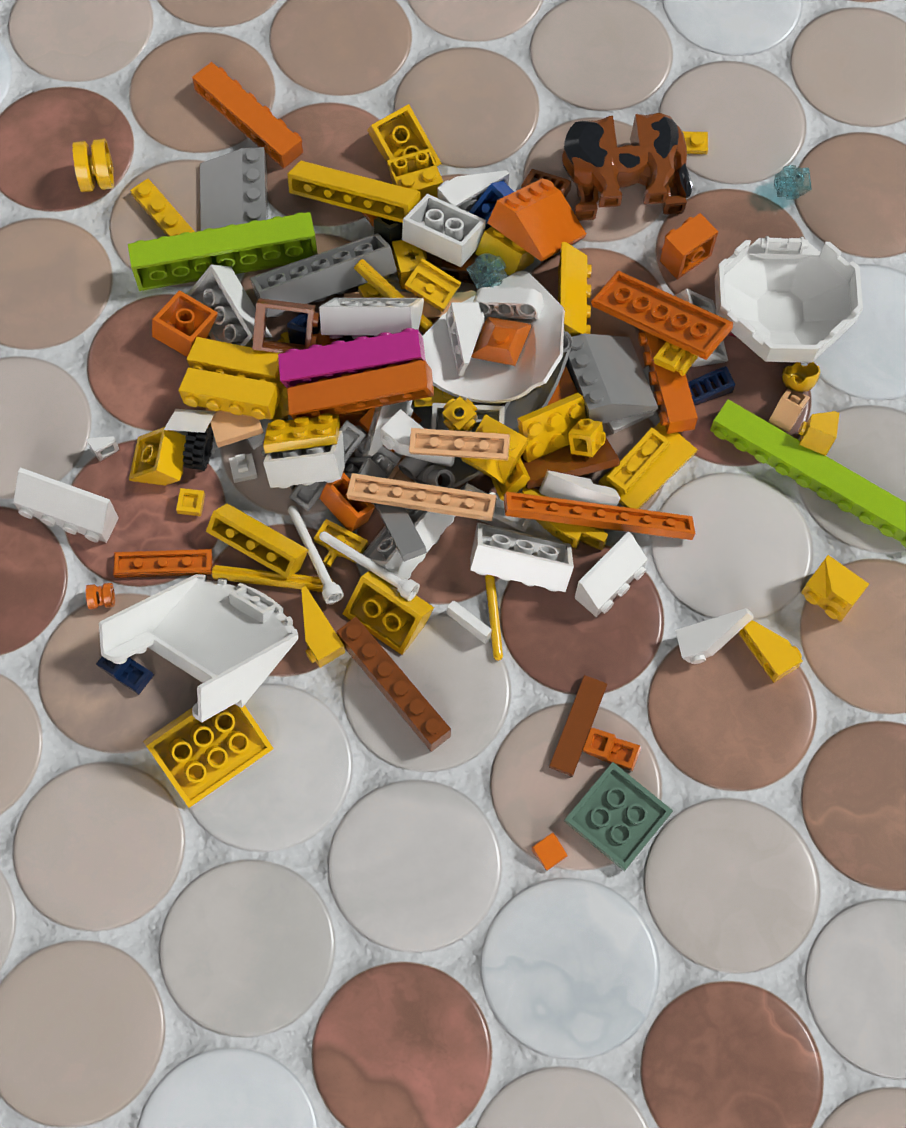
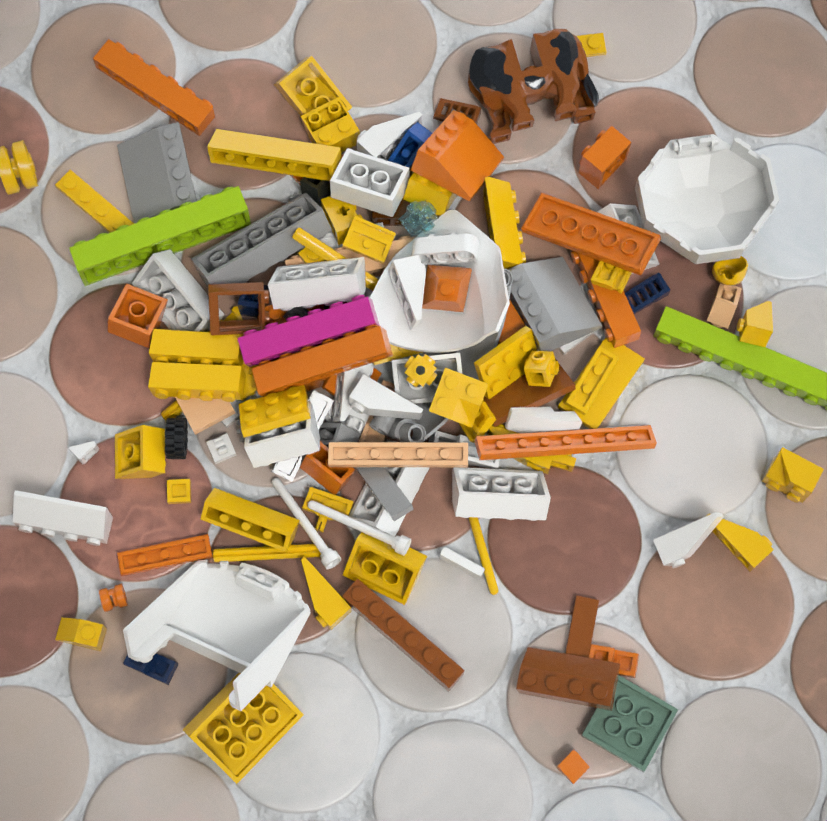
camera: 10 degrees left, 5 degrees up
(61, 626) = (81, 633): none -> yellow slope
(189, 420) = (164, 414): white sticker -> none
(459, 444) = (426, 401): light nougat plate -> none
(560, 758) = (568, 678): none -> dark orange slope
(611, 575) = (586, 498): white slope -> none
(792, 182) = (692, 74): clear light blue brick -> none

